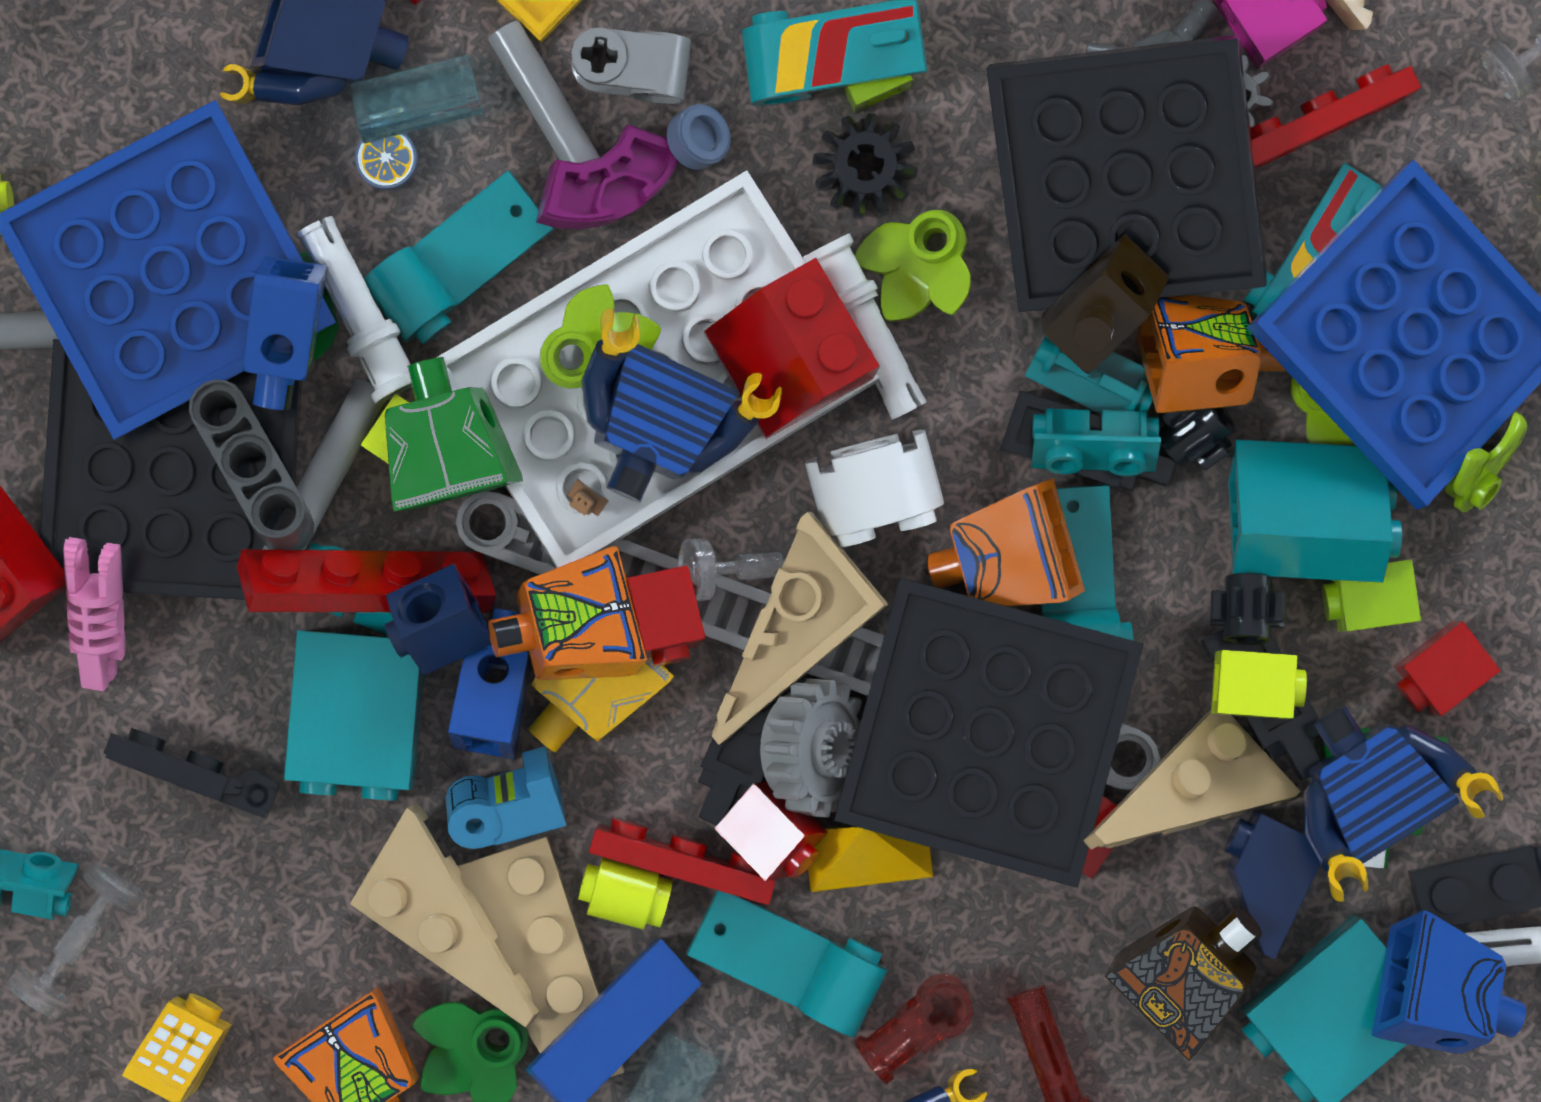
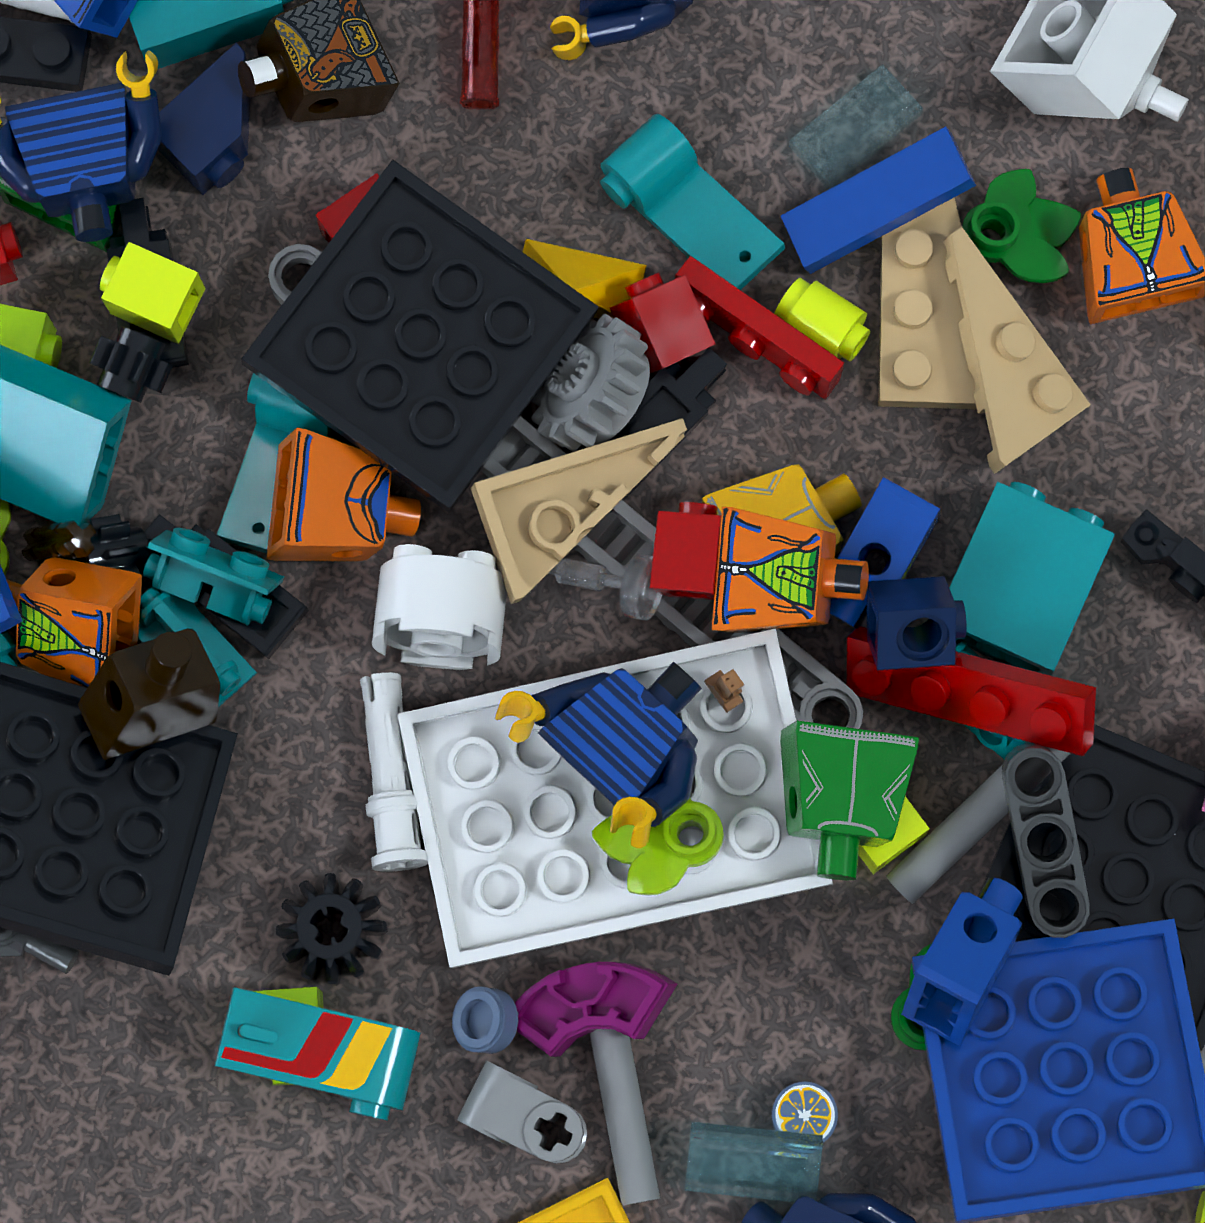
camera: 155 degrees left, 10 degrees down
(371, 336) = (881, 934): white pin -> none
(456, 259) = (770, 986): teal door -> none
(506, 804) = (908, 441): dark azure leg -> none
(798, 341) = (465, 769): red slope -> none
(911, 271) = (326, 811): lime plate -> none
(915, 1028) = (589, 107): clear red connector -> none
(1204, 777) = (241, 228): tan wing -> none
(1248, 421) = (59, 540): none -> dark brown axle

